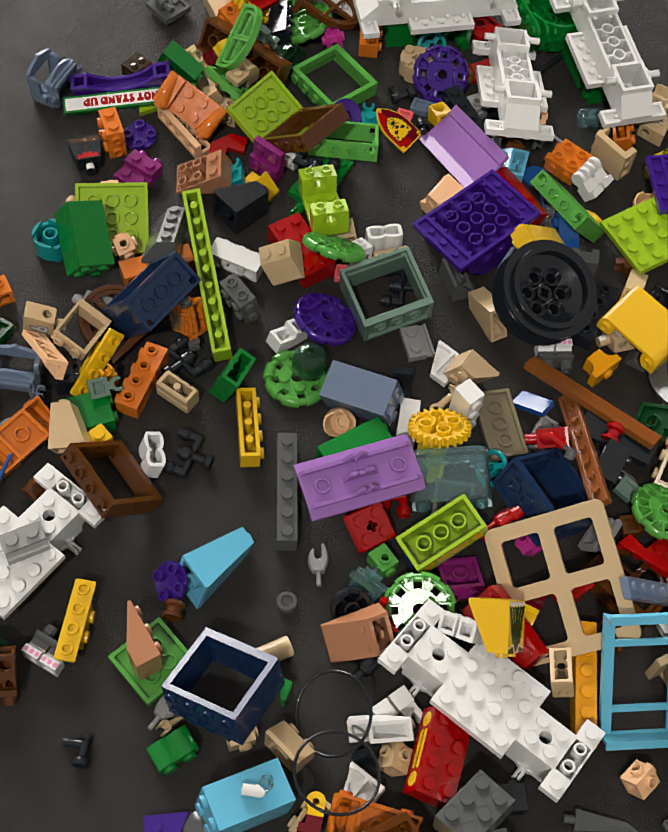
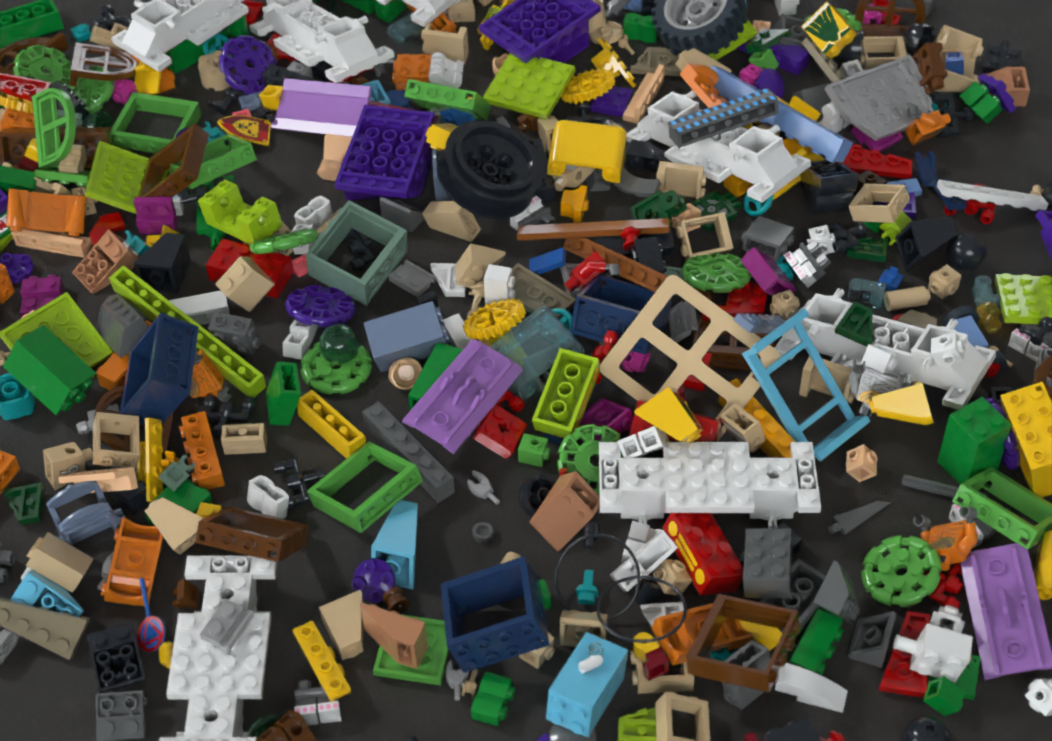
camera: 30 degrees left, 10 degrees down
(114, 605) = (345, 624): none -> tan slope
(124, 252) = (91, 354): light nougat brick -> none
(228, 520) = (380, 501): none -> bright green window
(319, 717) = (587, 591): none -> teal piece
(354, 41) = (147, 79): none -> yellow shield
(370, 580) = (528, 471): clear light blue hips -> none

